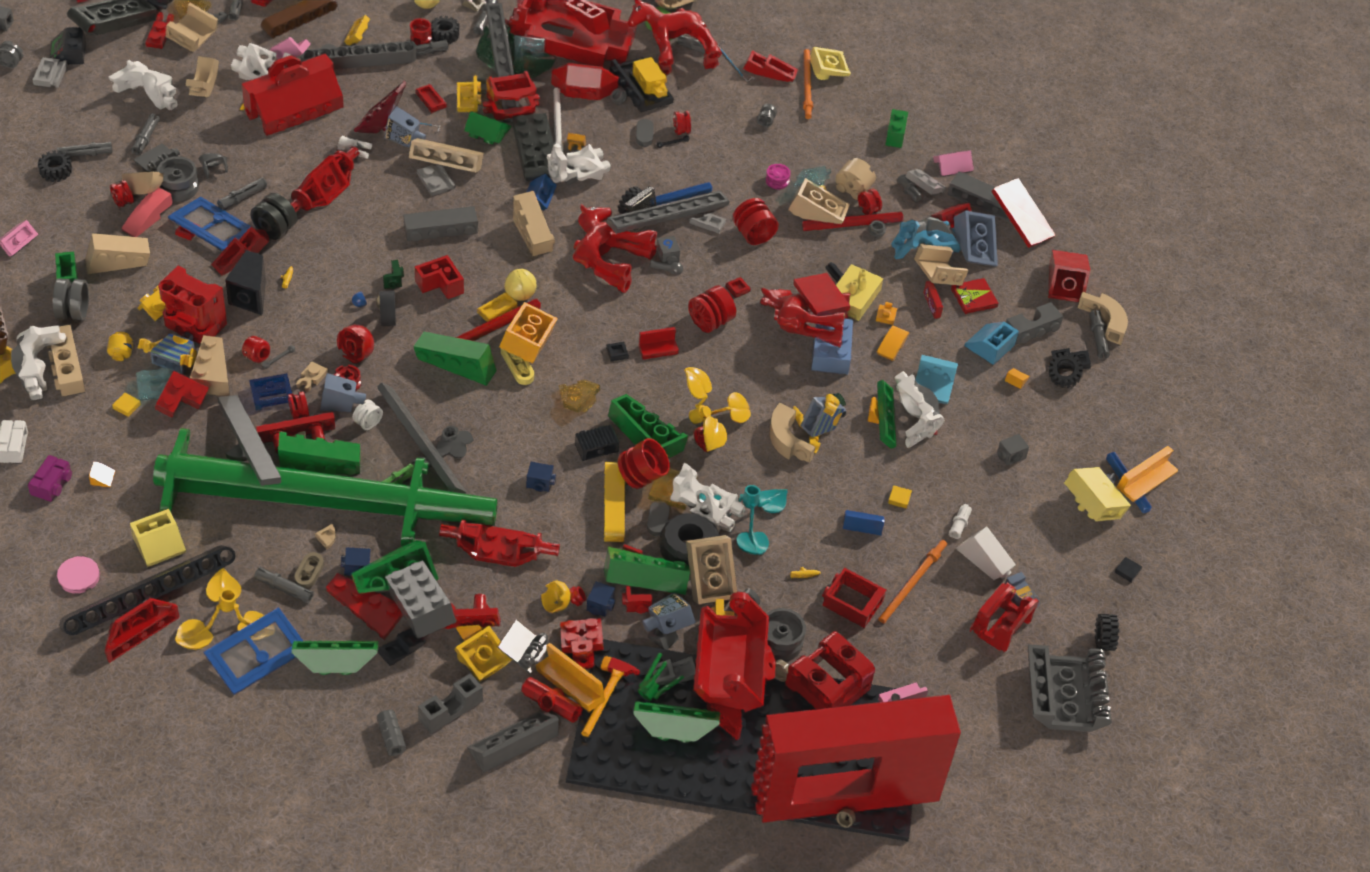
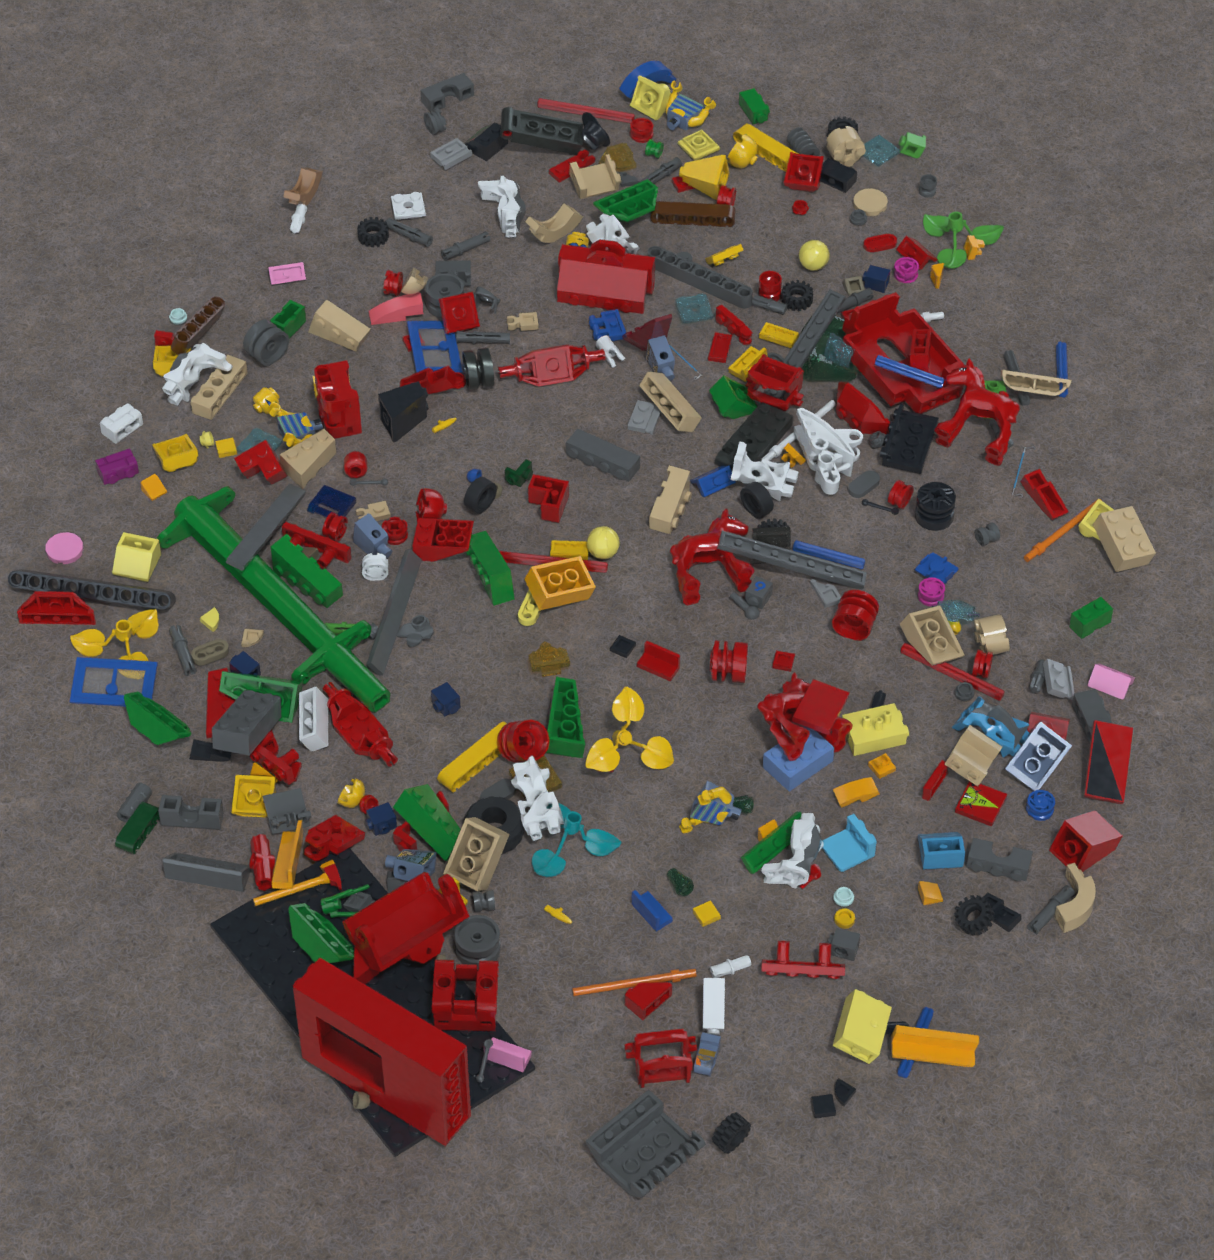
camera: 50 degrees right, 0 degrees up
(53, 130) = (411, 200): none -> white piece
(91, 433) = (176, 453): none -> yellow slope
(103, 407) = (207, 439): none -> light yellow plate
(207, 184) = (459, 312): none -> red tile
(234, 82) = (577, 239): none -> yellow head
(247, 28) = (630, 202): none -> green wedge
(261, 162) = (525, 321): none -> tan plate
(277, 545) = (210, 619): none -> light yellow tile
(291, 47) = (641, 239): bright pink panel -> none
(331, 126) = (612, 323): none -> blue plate
(385, 78) = (698, 302): none -> clear light blue piece
(396, 359) = (441, 538): none -> red slope
(419, 749) = (137, 827): none -> dark green beam
(424, 75) = (734, 324): none -> red hinge
(460, 561) = (313, 719): none -> white brick
(464, 65) = (778, 335): none -> yellow plate
(593, 176) = (756, 500): none -> black tyre
(596, 442) = (518, 703): black brick -> none
(597, 33) = (909, 371): none -> blue axle
(600, 119) = (828, 446): none -> white piece
(650, 77) = (916, 438): yellow hinge -> none
(715, 116) = (935, 506): none -> black wheel
(761, 158) = (936, 567): none -> blue piece
(783, 439) = (673, 791): tan arch -> none
(859, 63) = (1124, 538): none -> tan brick
(859, 487) = (680, 882): none -> clear green cone
(860, 584) = (573, 974): red window -> none
(937, 585) = (647, 997): none -> red slope
(970, 419) = (843, 896): none -> light aqua plate
(987, 433) = (844, 918): none -> yellow tile
(999, 491) = (794, 968): none -> red plate
(1012, 271) = (1040, 806): none -> blue wheel
(1128, 549) = (843, 1091): none -> black tile

